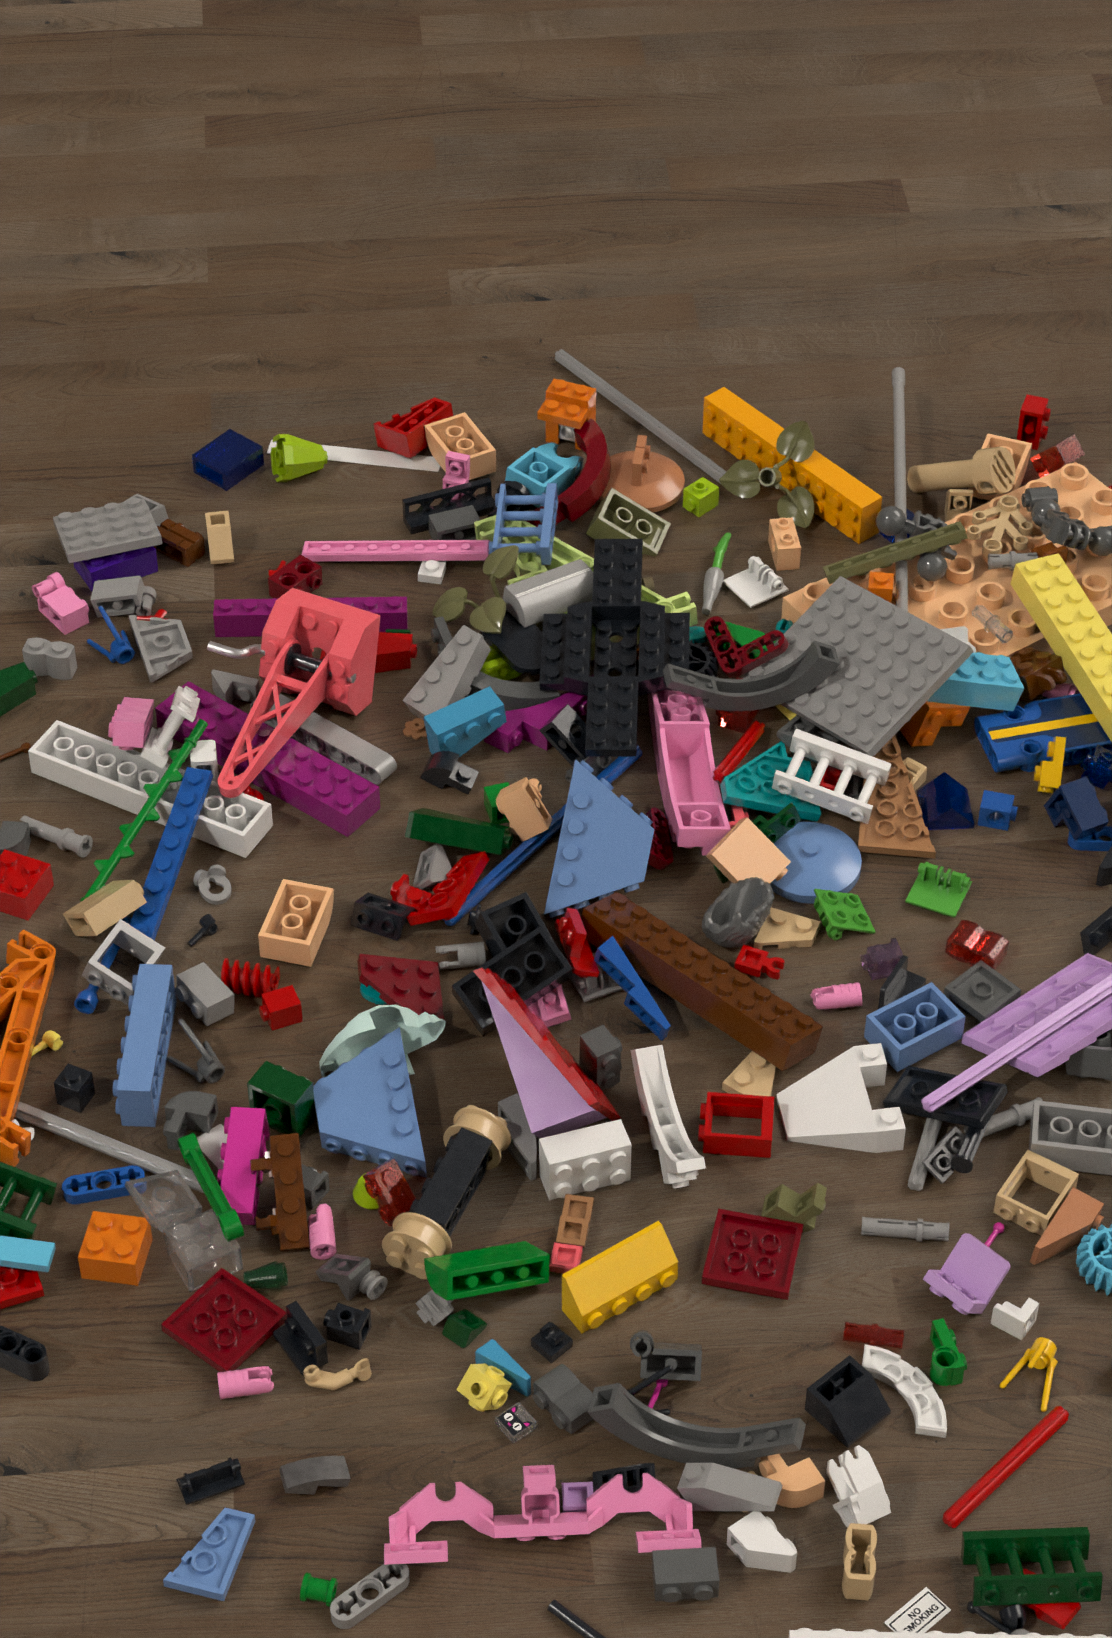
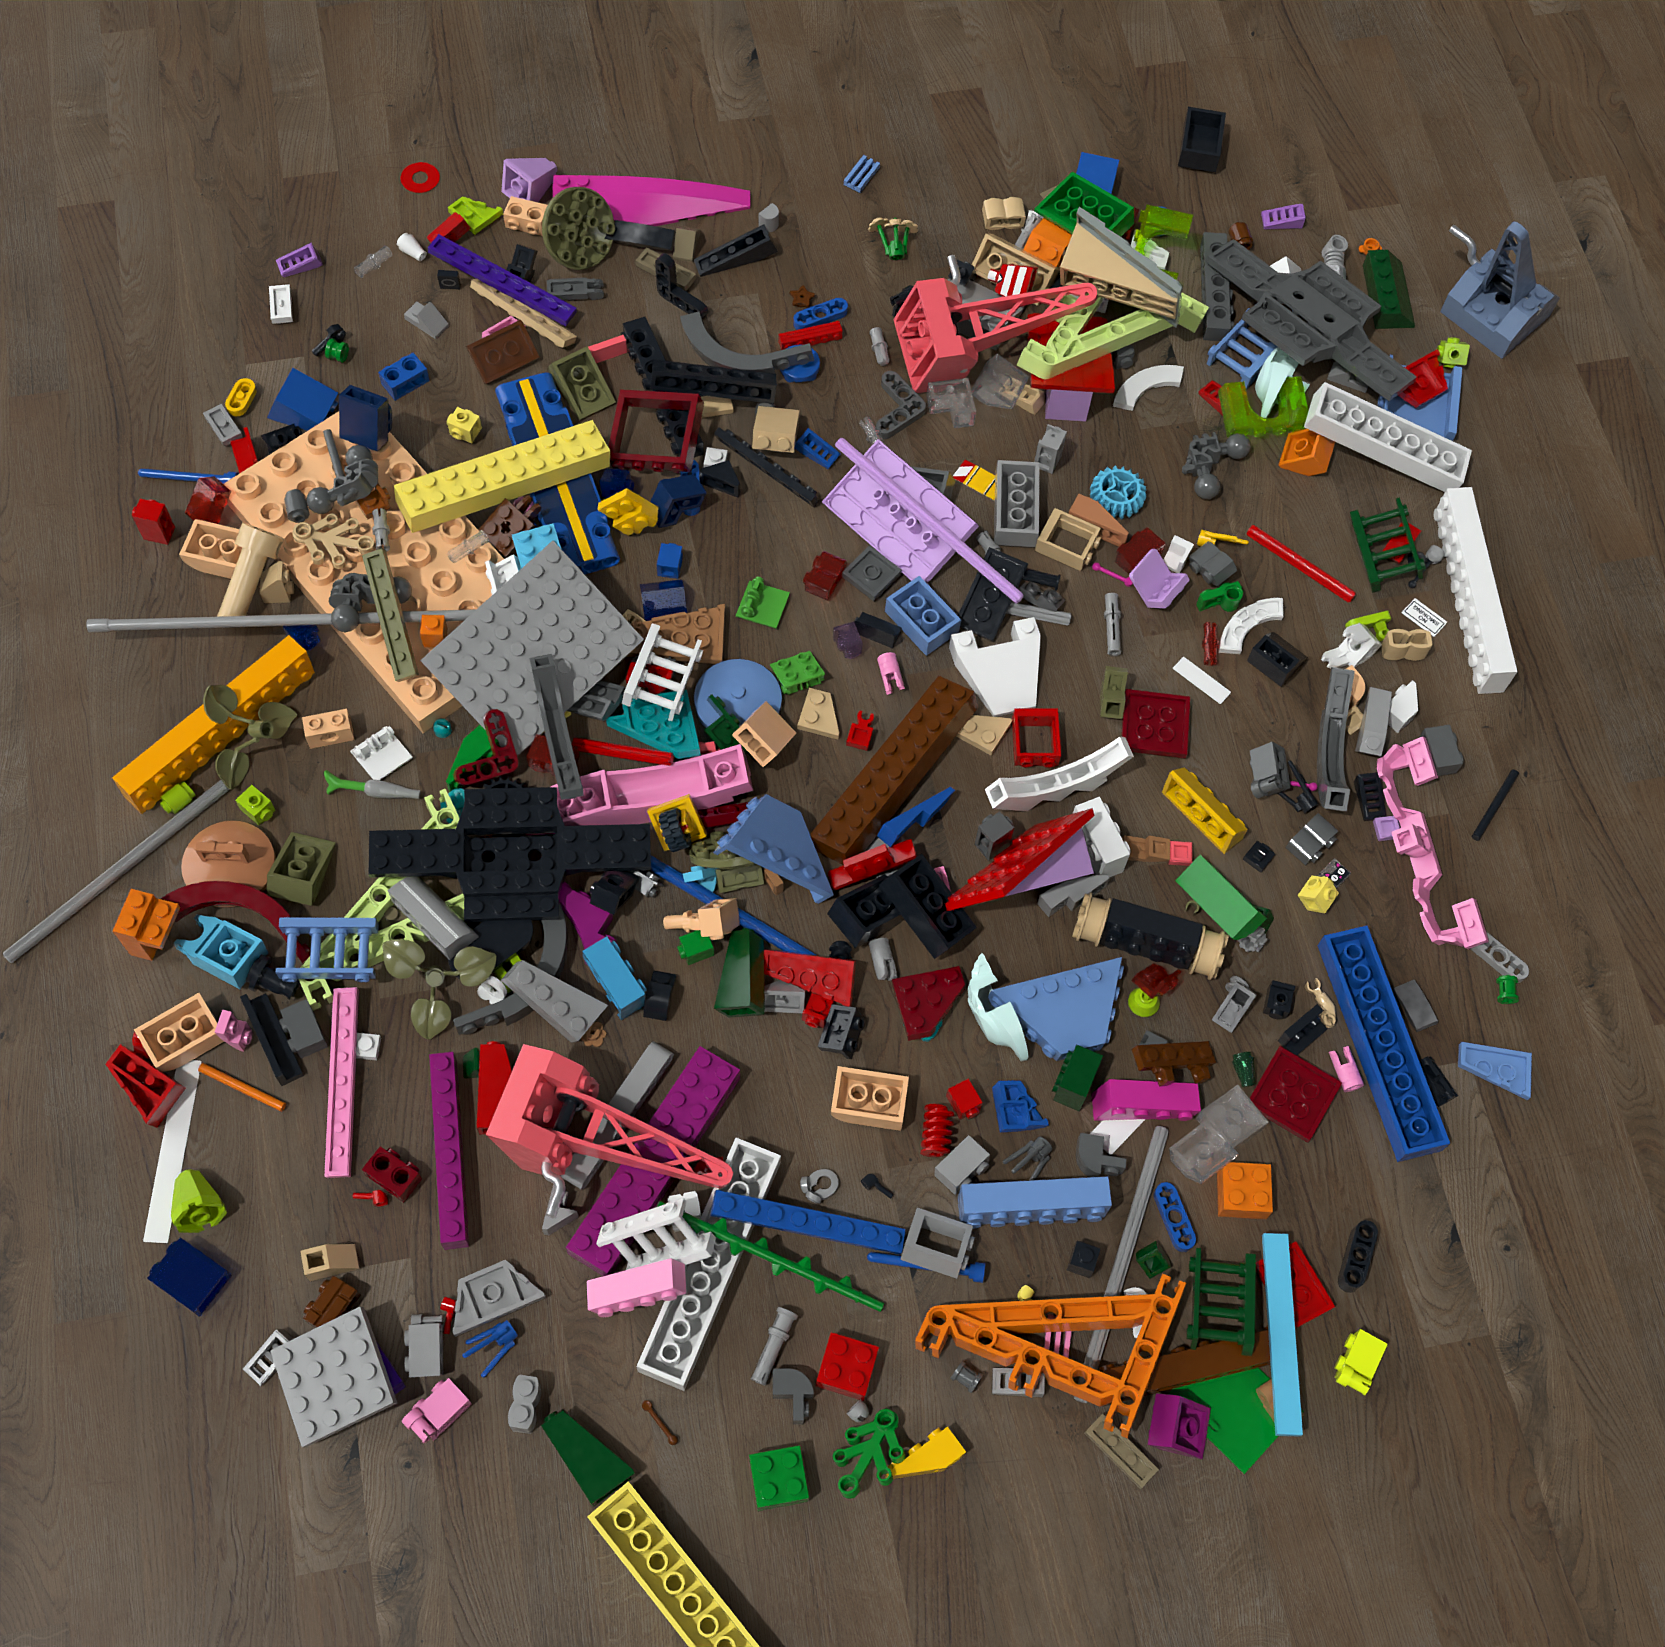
camera: 100 degrees left, 20 degrees up
(59, 1156) = (1153, 1259): none -> dark green slope
(105, 907) = (877, 1269): tan brick -> none
(227, 1217) = (1224, 1092): green piece -> none
(253, 1052) = (1015, 1108): none -> blue slope
(268, 1418) = (1383, 1044): none -> blue brick
(322, 1233) = (1195, 1032): bright pink hinge -> none
(405, 493) = (242, 1087): none -> orange bar
(496, 1356) = (1290, 890): dark azure slope -> none
(637, 778) = (677, 823): none -> plate
(713, 448) = (177, 798): none -> lime brick
(738, 912) = (821, 740): dark grey hair -> none
(820, 1323) = (1201, 680): none -> white sticker
(903, 1538) = (1375, 620): none -> lime piece
(995, 1343) = (1212, 564): none -> dark grey brick
(1026, 1275) = (1135, 550): none -> clear red brick
(1099, 450) = (186, 476): none -> blue piece

